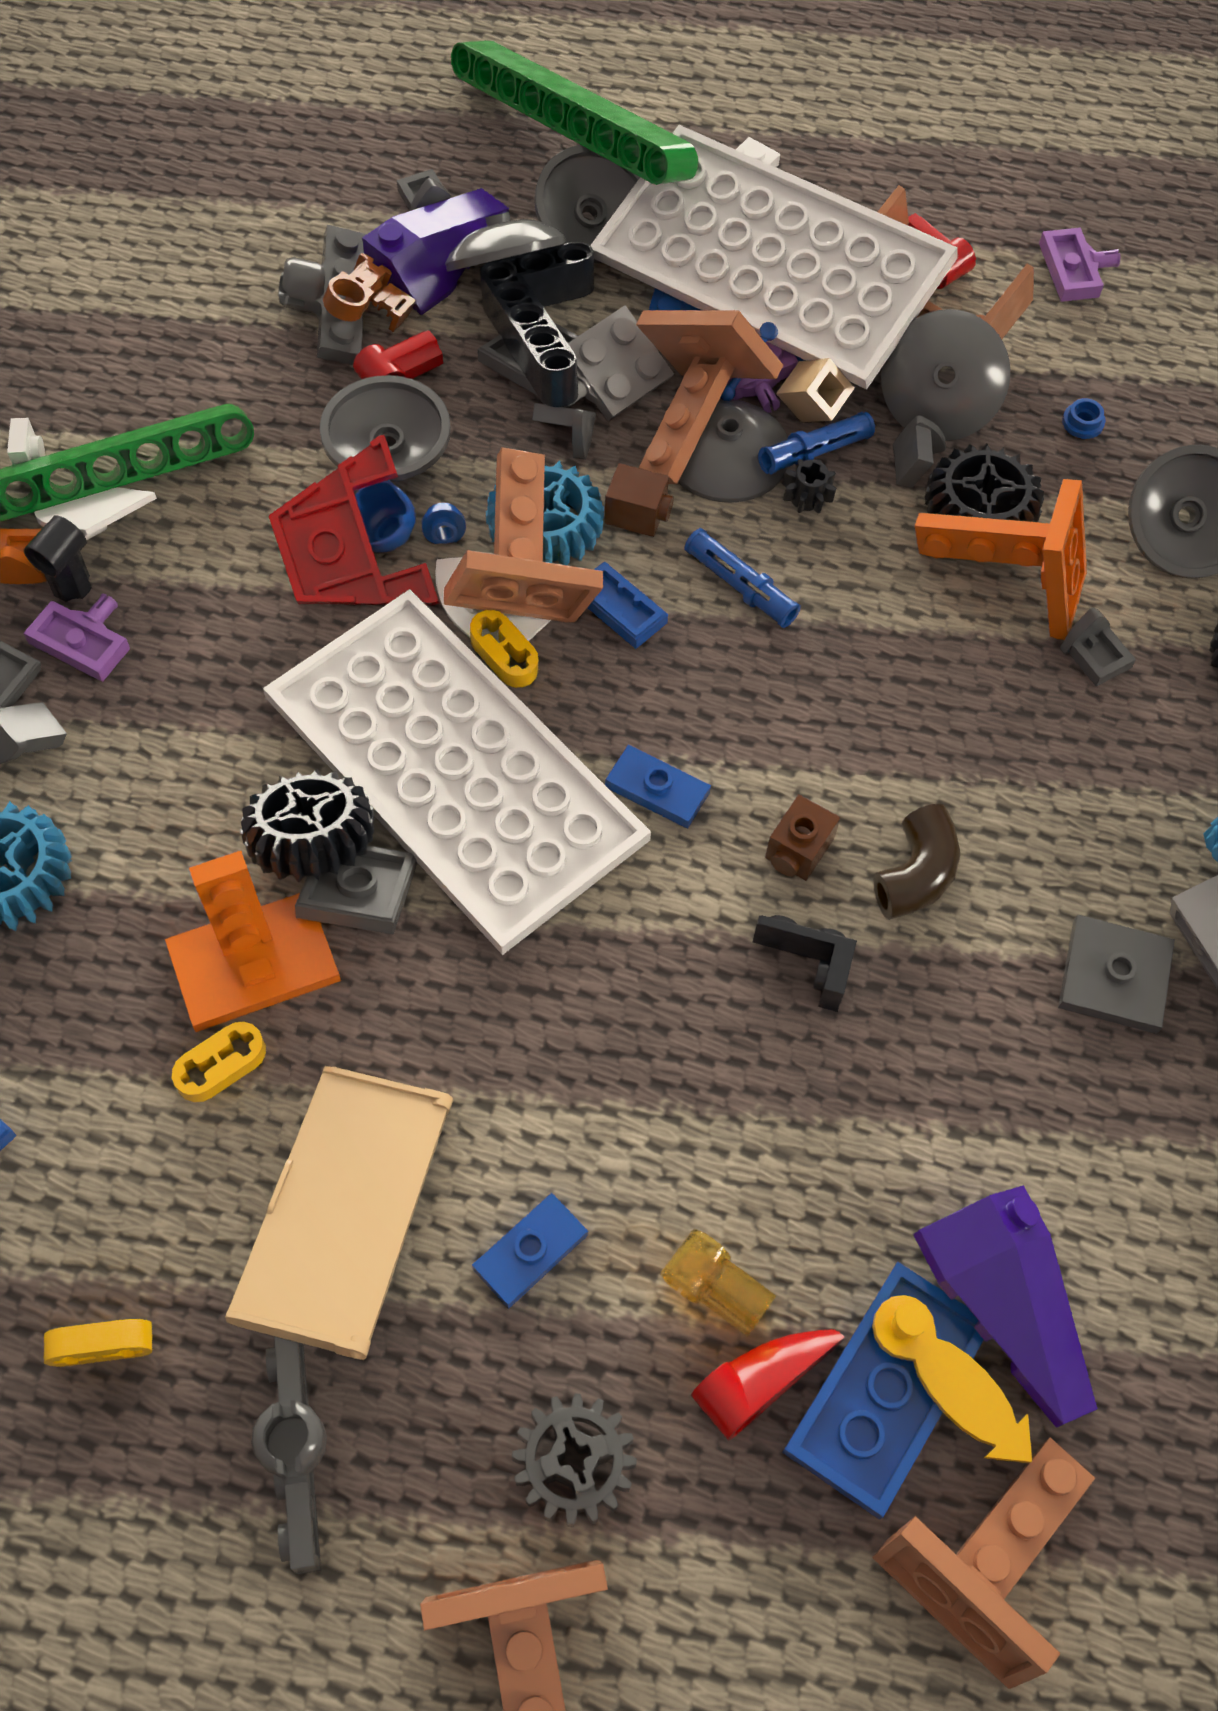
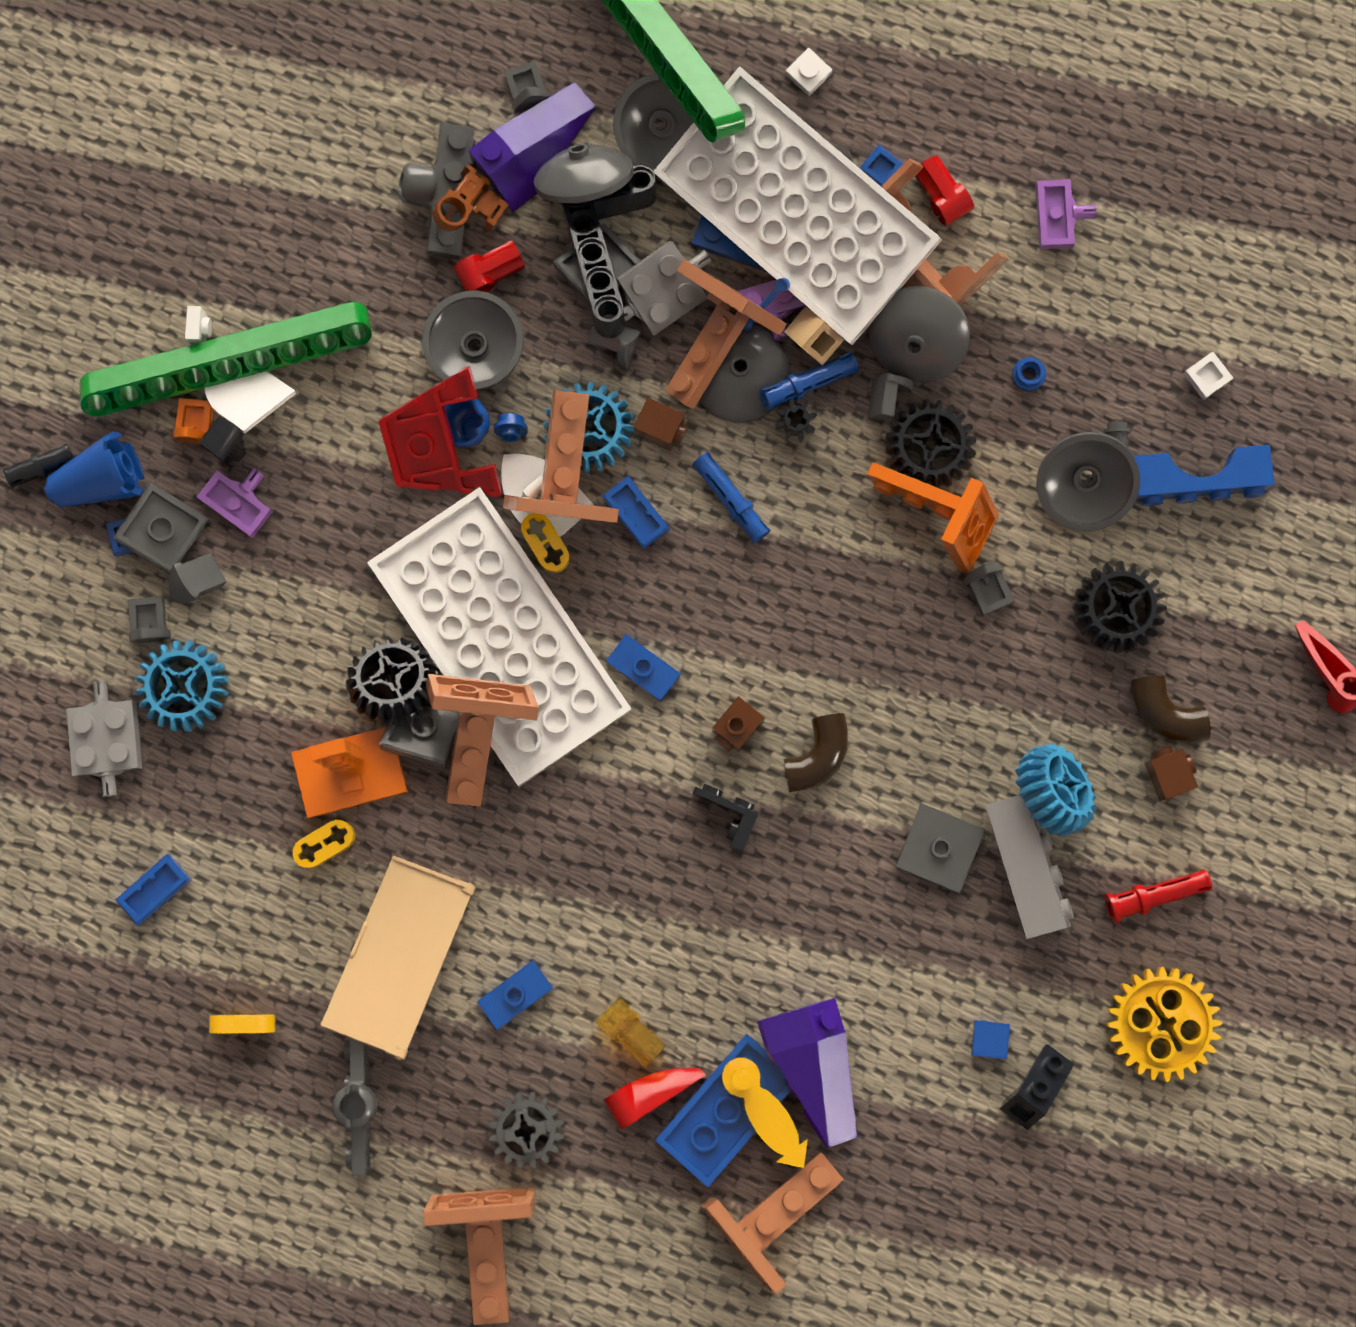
camera: 15 degrees right, 20 degrees up
(433, 869) = (477, 706): none -> nougat piece

